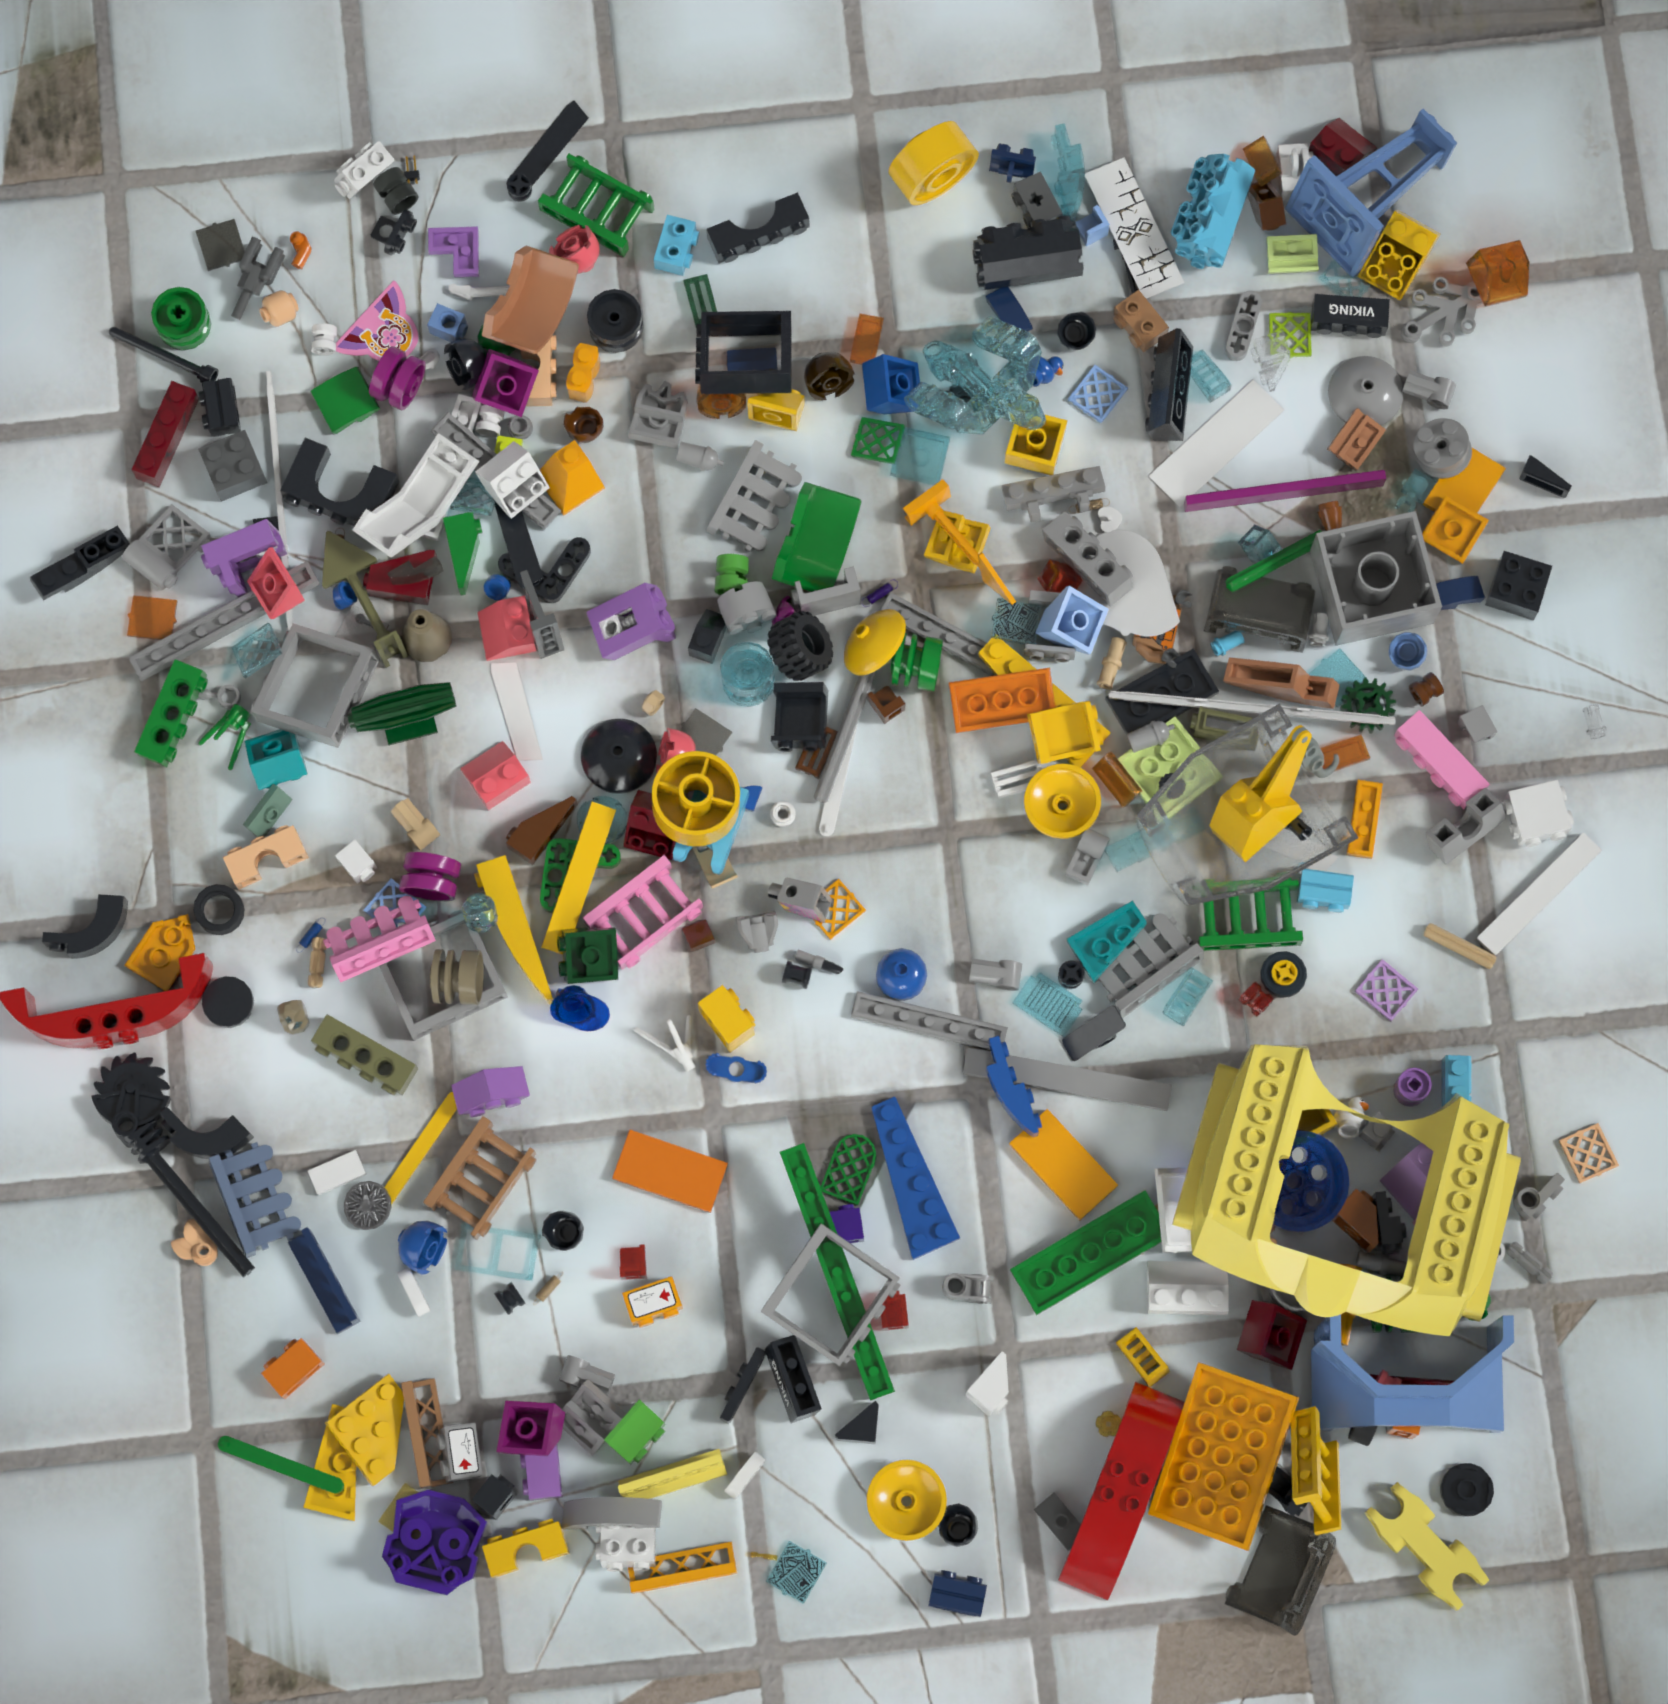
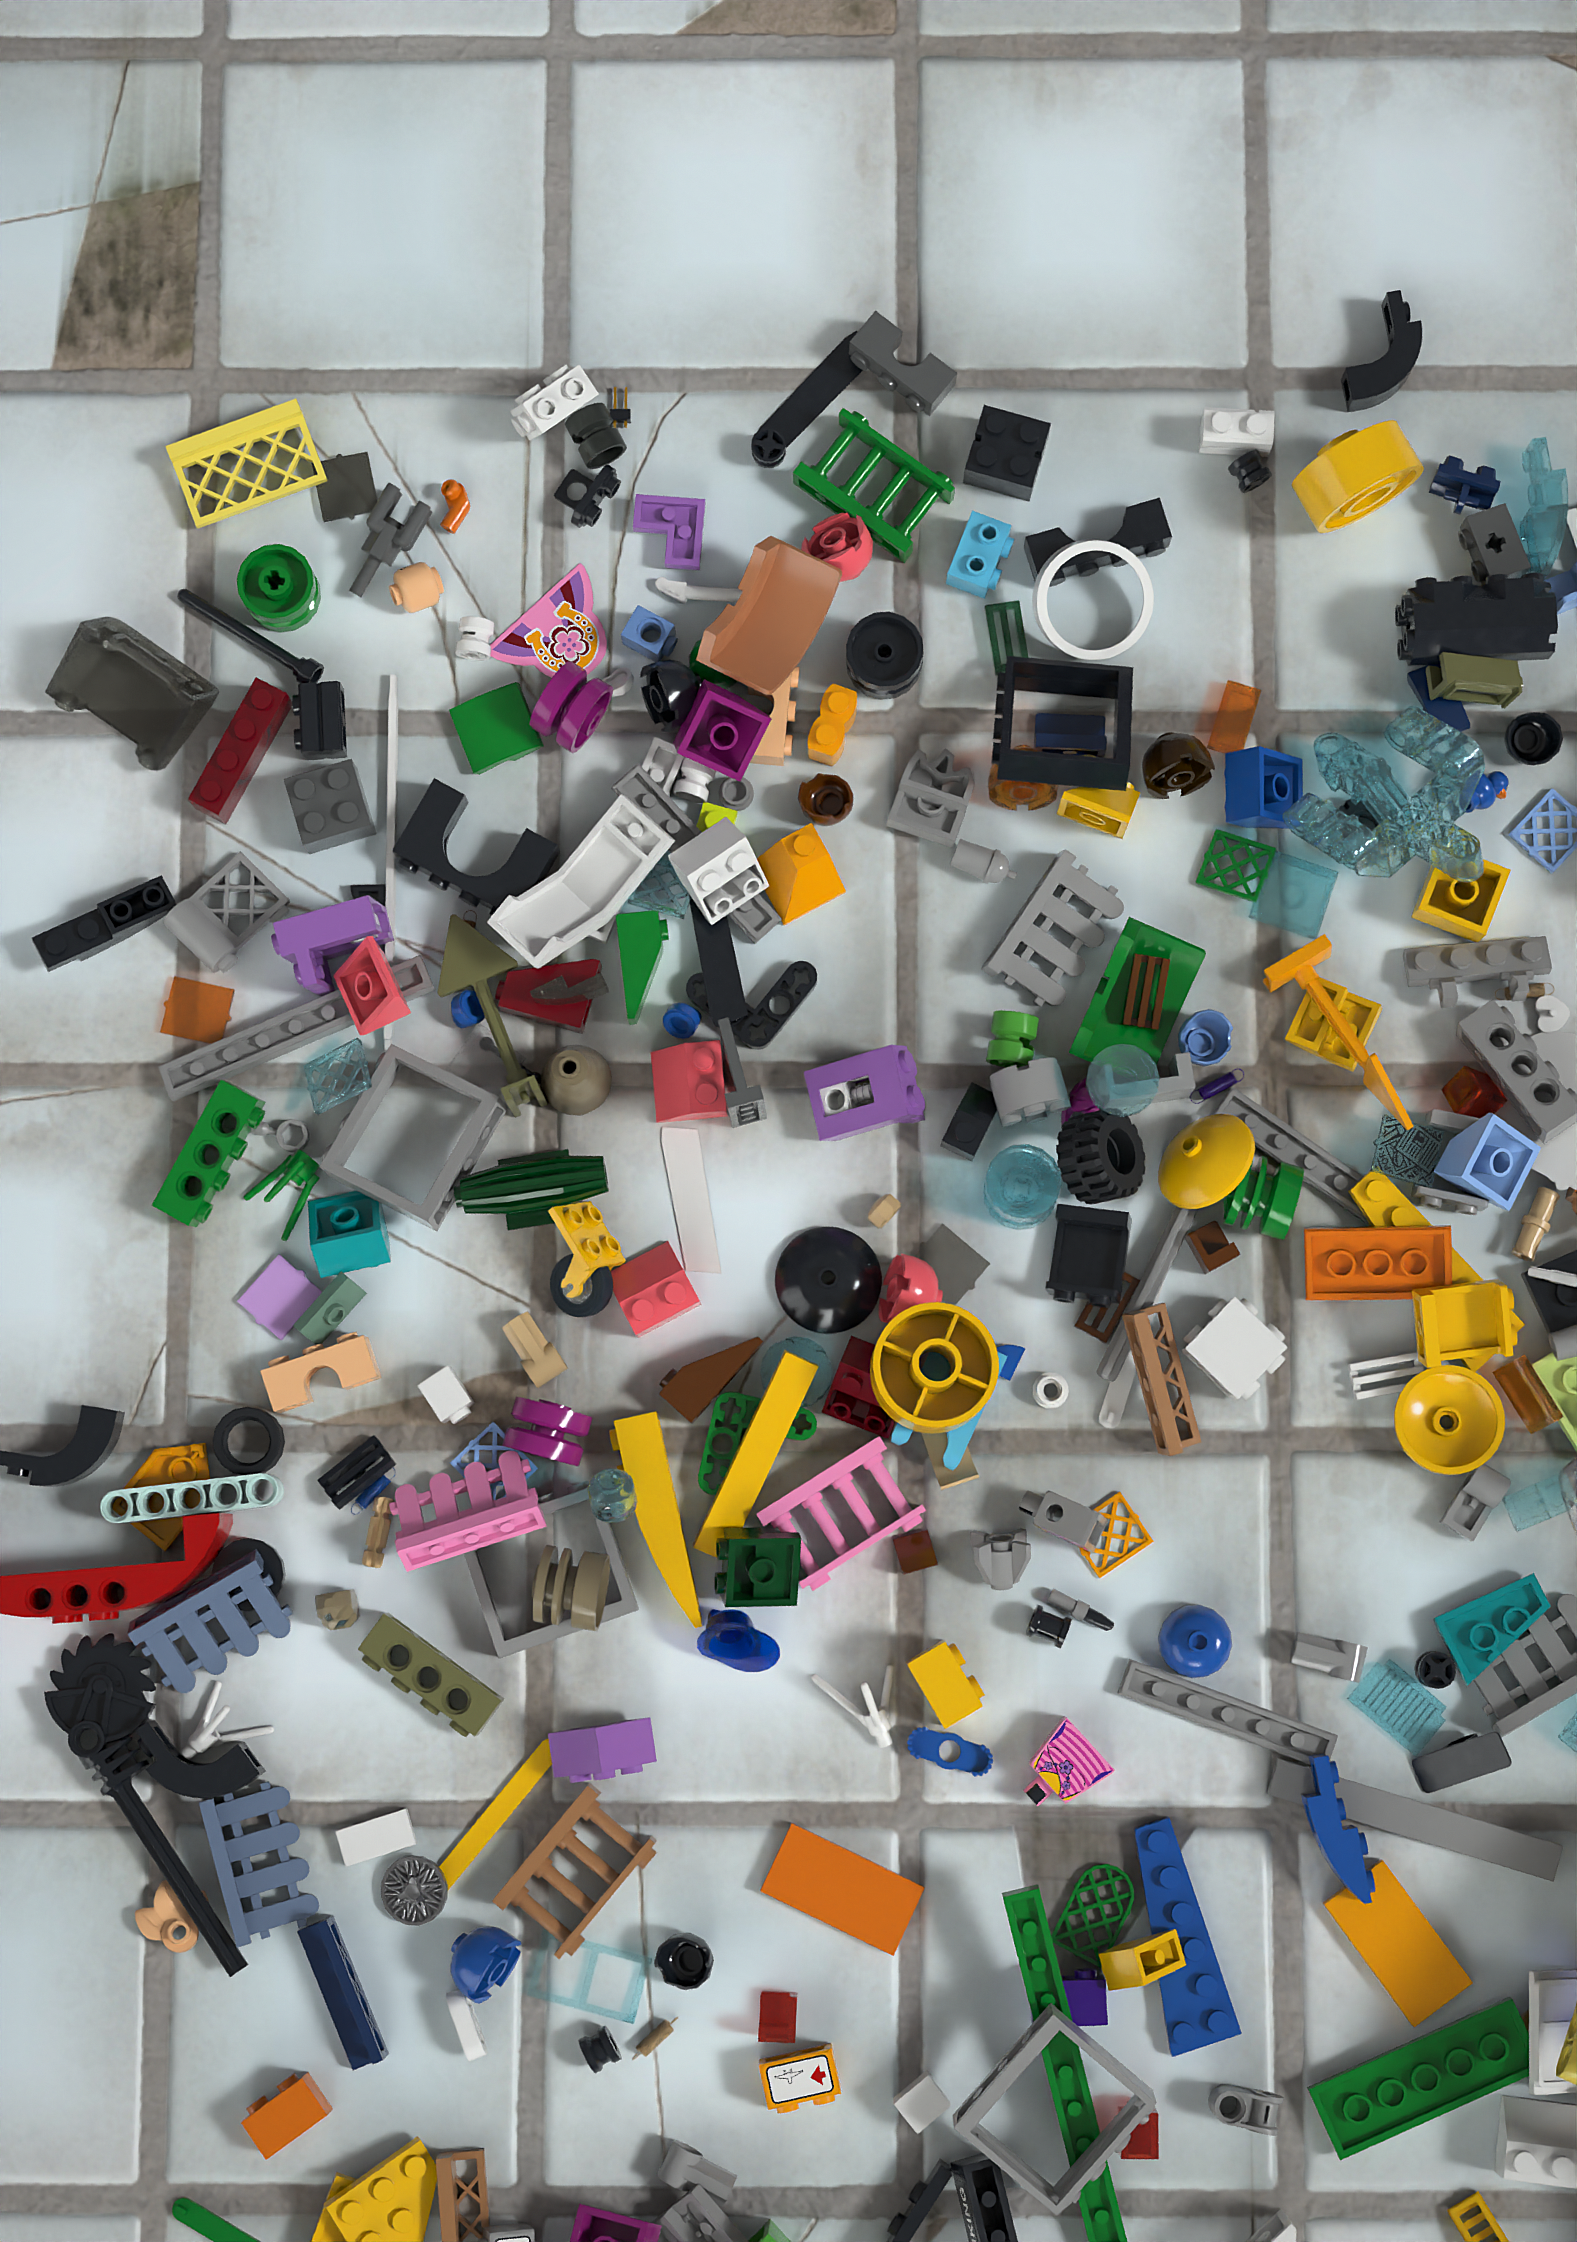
camera: 10 degrees right, 5 degrees up
(83, 399) = (132, 688): none -> clear smoke windscreen
(142, 215) = (236, 435): none -> light yellow fence
(171, 946) = (175, 1494): none -> light aqua beam
(209, 1116) = (206, 1734): none -> white plant
(213, 1024) = (192, 1624): none -> sand blue fence
(230, 809) = (279, 1297): none -> lavender piece
(296, 919) = (354, 1467): none -> black tile
(445, 771) = (583, 1280): none -> yellow plate
(623, 132) = (921, 385): none -> dark grey arch
(685, 173) = (1005, 453): none -> black piece
(720, 271) = (1043, 581): none -> white piece
(739, 1308) = (921, 2102): none -> white panel
(808, 589) = (1122, 1080): none -> clear light blue tile
(818, 1067) = (1065, 1765): none -> torso
(823, 510) = (1159, 996): none -> reddish brown tile
(848, 142) = (1236, 431): none -> white brick
(854, 797) = (1154, 1381): none -> medium nougat fence
(860, 168) = (1249, 471): none -> black wheel
(867, 558) = (1206, 1037): none -> medium blue hair
(883, 1191) = (1142, 1960): none -> yellow slope
(908, 769) = (1235, 1347): none -> white brick
(948, 95) = (1378, 381): none -> black arch
(1031, 294) = (1475, 679): none -> olive window

